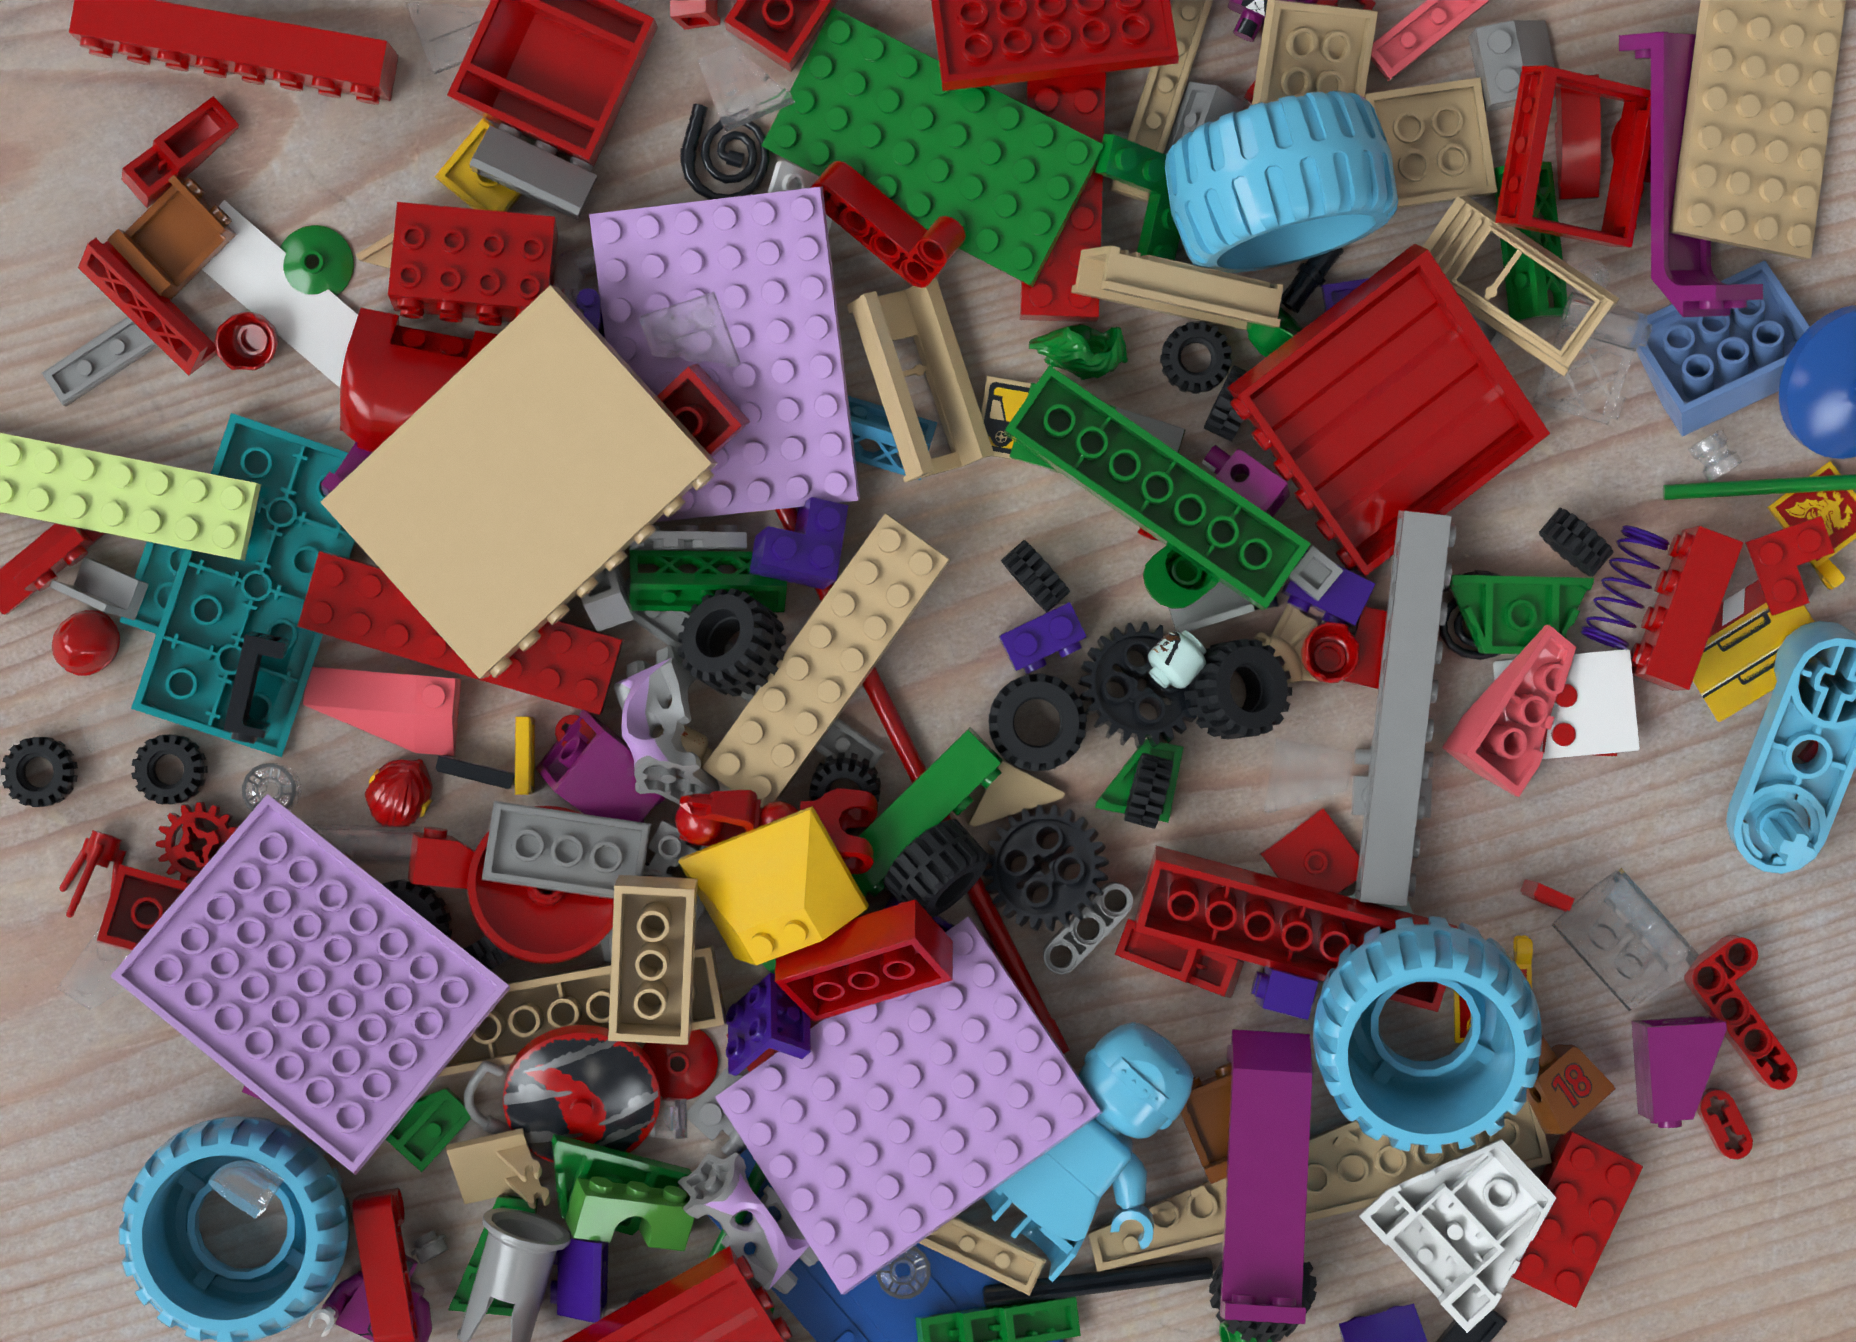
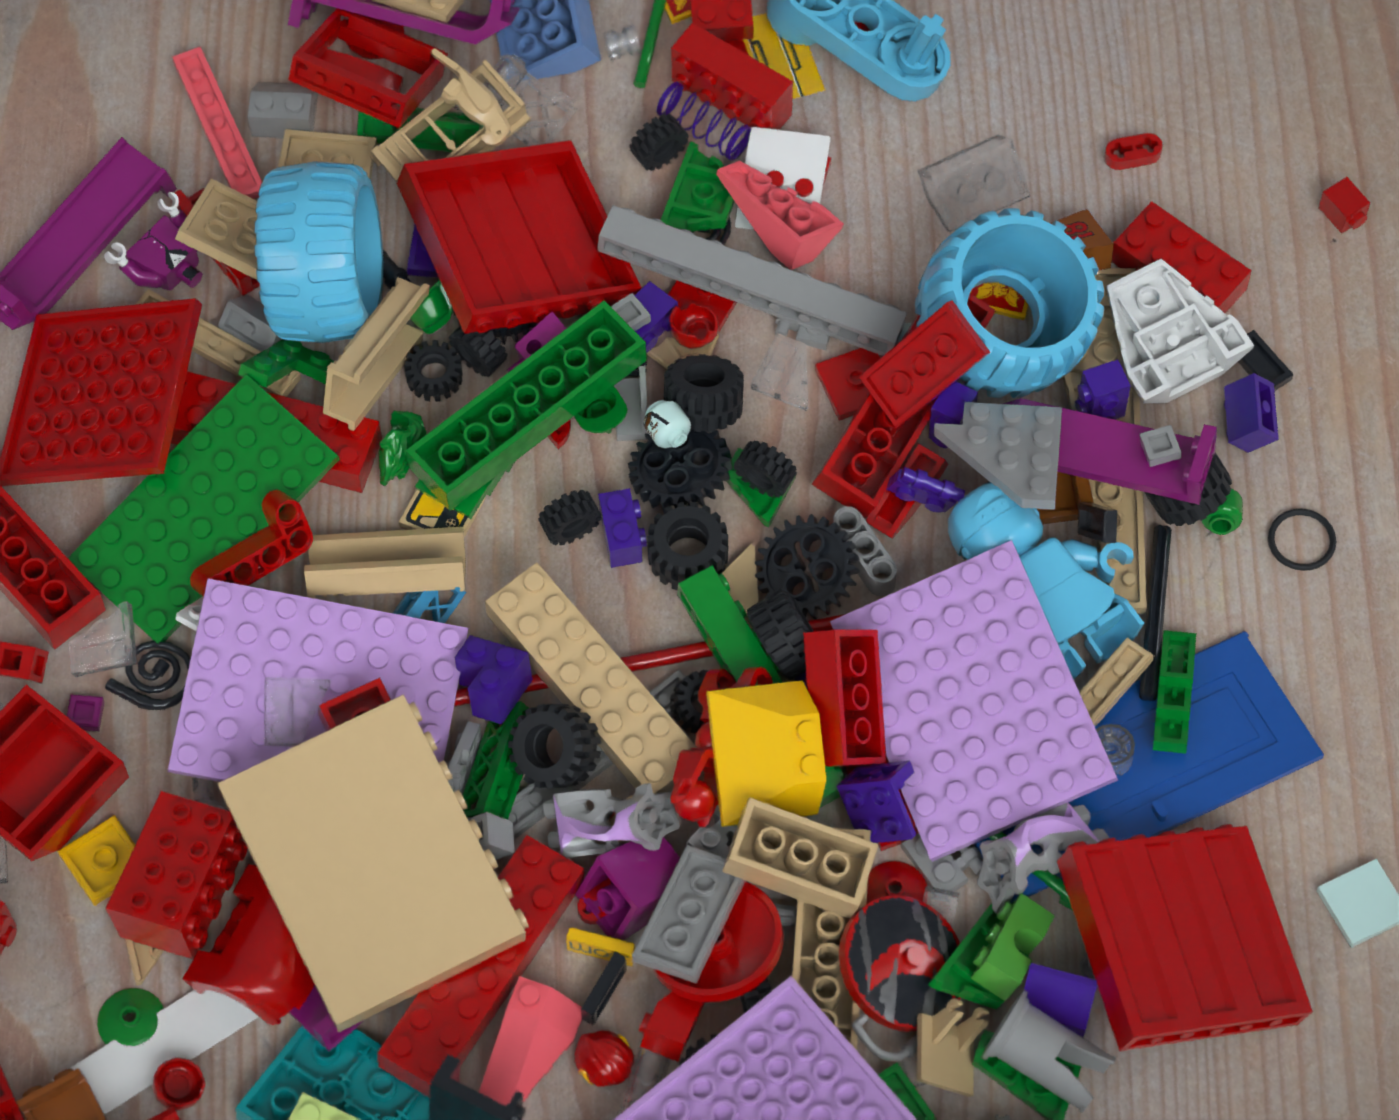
camera: 70 degrees left, 25 degrees down
(534, 170) = (116, 815): light grey slope -> none
(658, 91) = (86, 711): none -> magenta tile
(1164, 987) = (918, 486): none -> dark purple plate
(1177, 1197) = (1097, 522): none -> black tile
(1228, 1083) = (1011, 448): none -> light grey wing
(1274, 1258) = (1160, 445): none -> light grey plate
(1307, 955) = (924, 364): none -> red tile
(1349, 1167) = (1104, 391): none -> dark purple brick
(1547, 308) = (475, 102): none -> tan animal
(1547, 895) = (924, 220): red tile -> none
(1674, 1065) = (1080, 167): magenta slope -> none
(1745, 1017) = (1090, 108): red beam -> none

